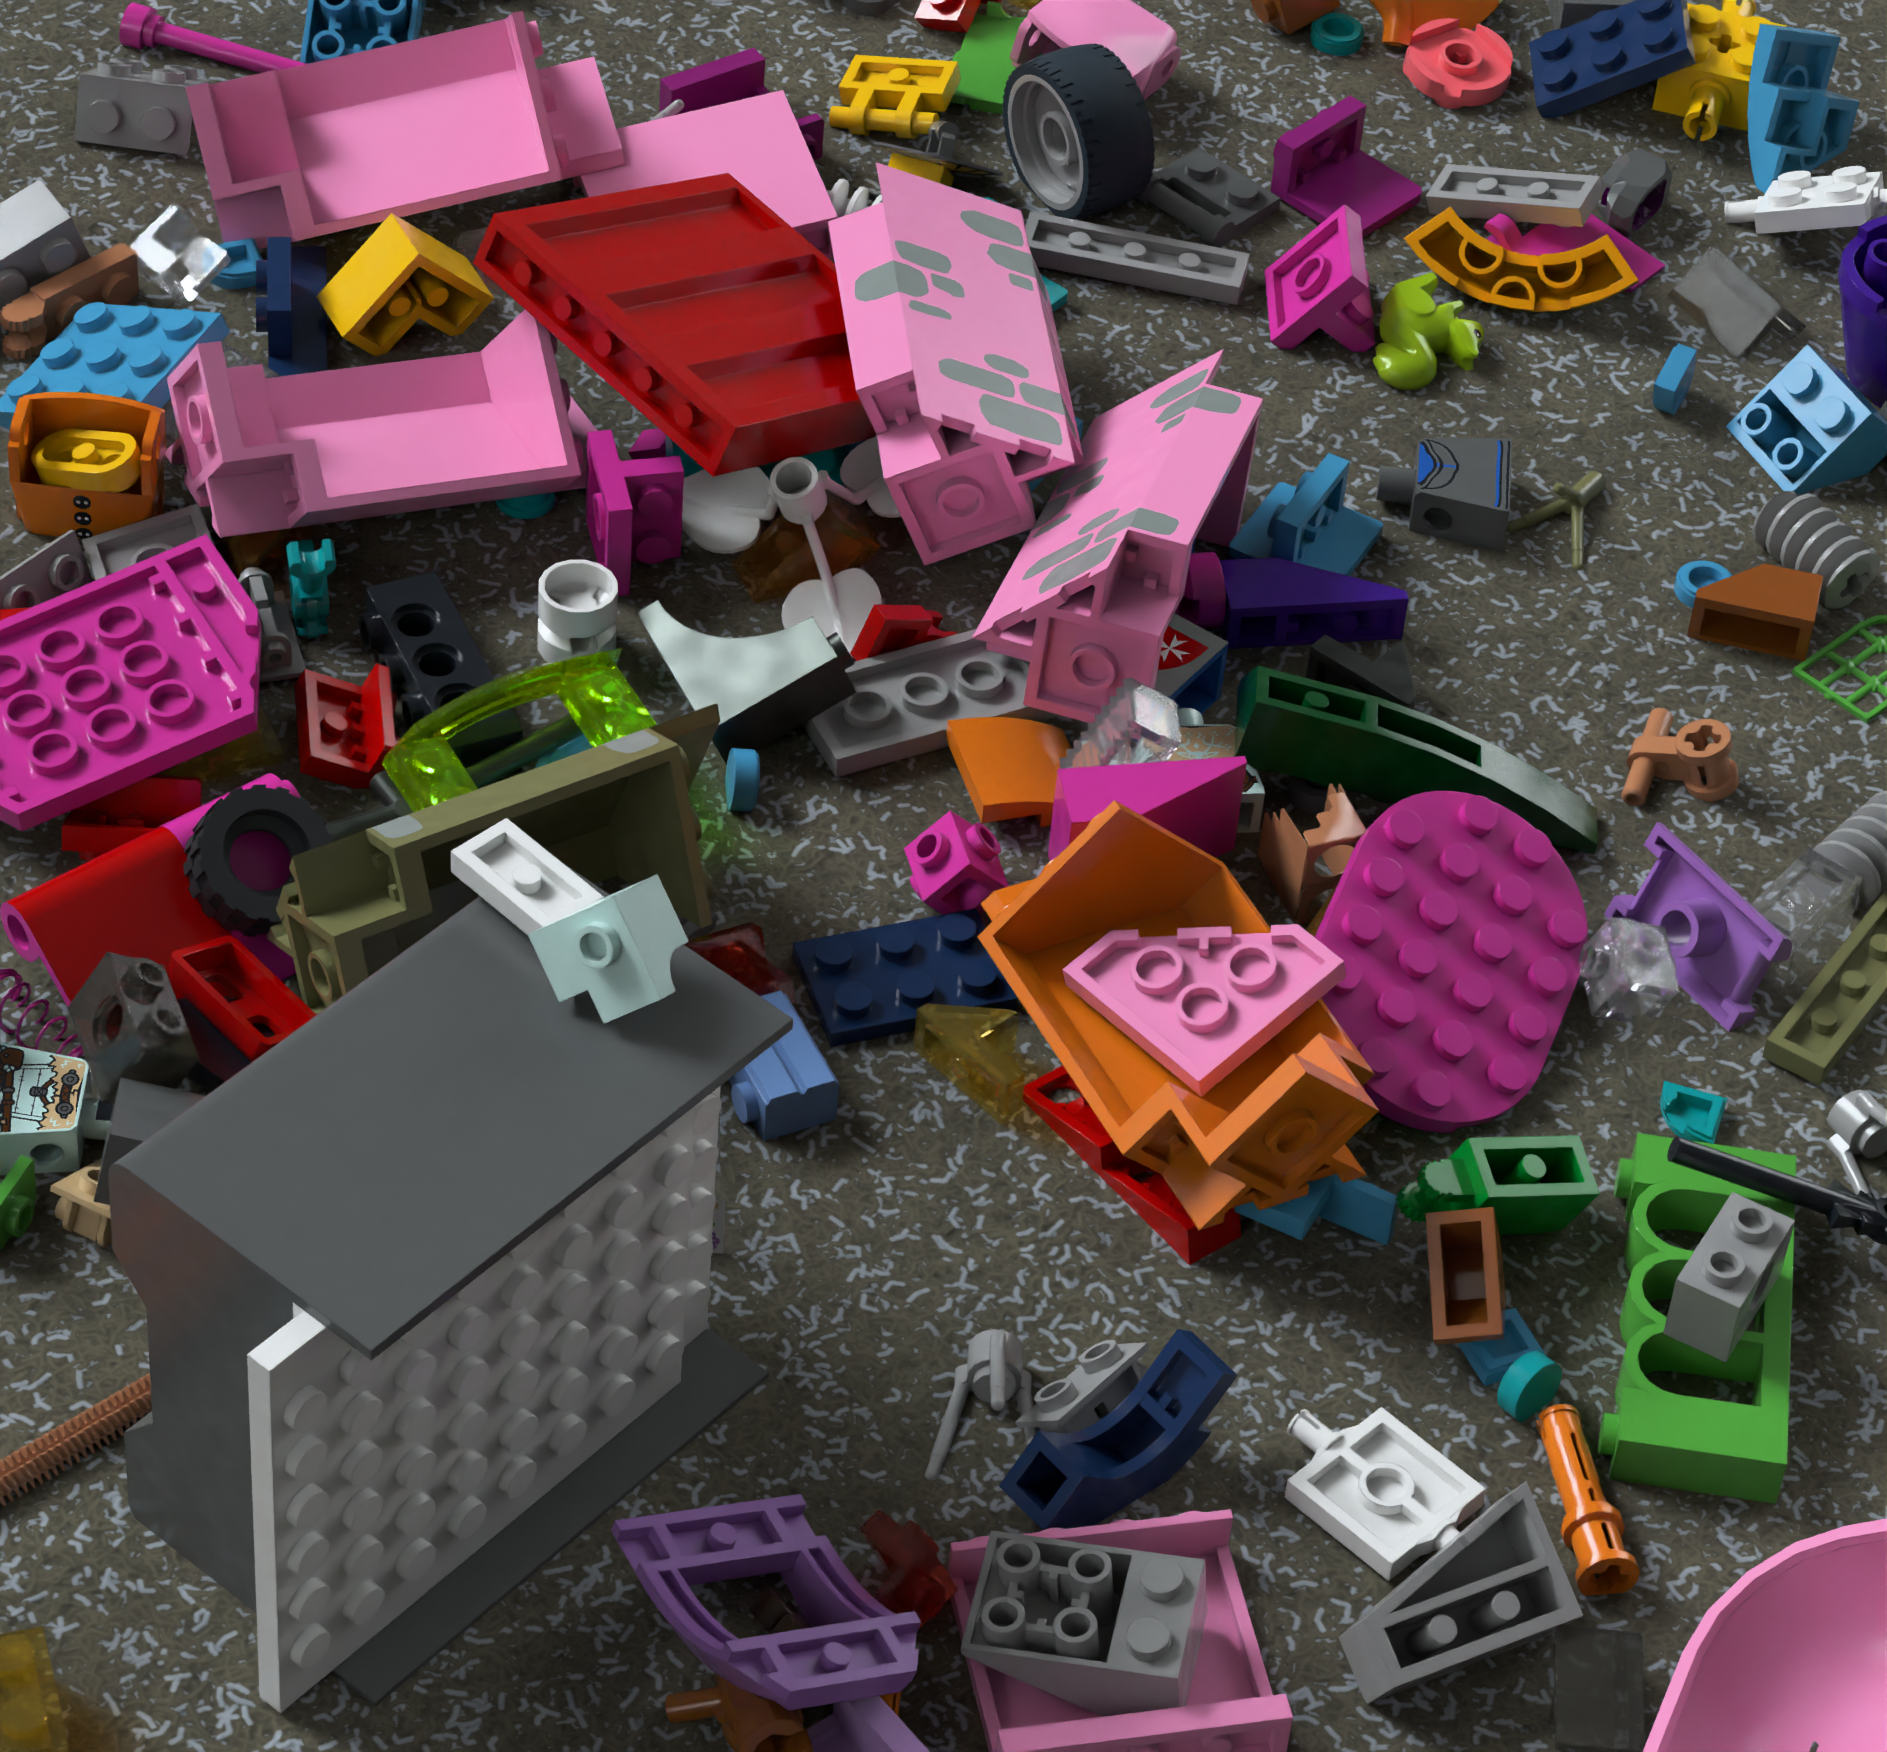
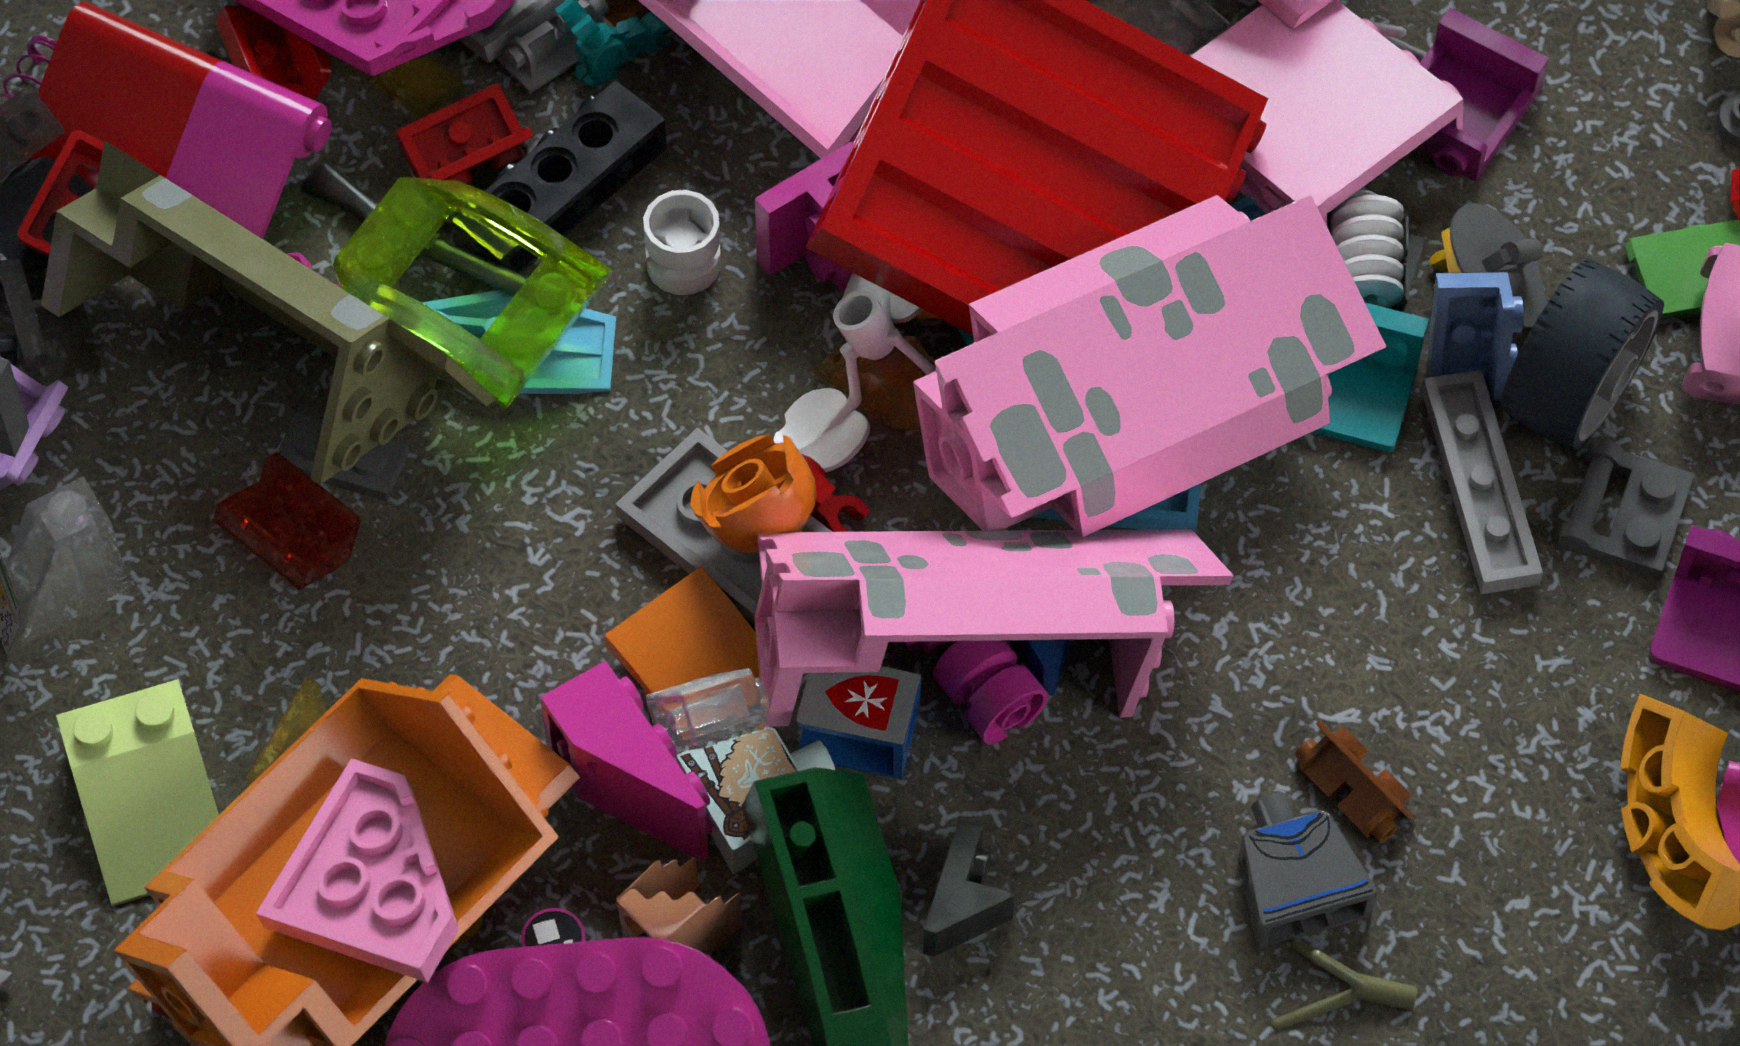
camera: 70 degrees right, 15 degrees up
(210, 846) = (260, 141): black tyre -> none
(742, 779) = (558, 444): dark azure tile -> none
(759, 681) = (652, 389): arch -> none
(787, 1083) = (214, 602): medium blue brick -> none
(879, 976) = (380, 635): dark blue plate -> none
(906, 84) = (1604, 197): yellow plate -> none
(918, 633) = (755, 492): none -> orange cylinder
(955, 865) = (519, 644): dark pink brick -> none
(959, 1181) = (138, 783): none -> yellowish green slope
(1011, 169) = (1474, 327): none -> medium blue bracket
(1297, 604) = (1032, 774): dark purple slope -> none
(1309, 523) = (1159, 771): dark azure bracket -> none
(1322, 286) = (1528, 660): dark pink bracket -> none
(1359, 429) = (1338, 762): none -> dark orange hinge
(1419, 329) = (1533, 757): lime animal -> none
(1674, 379) = (1595, 1017): dark azure tile -> none

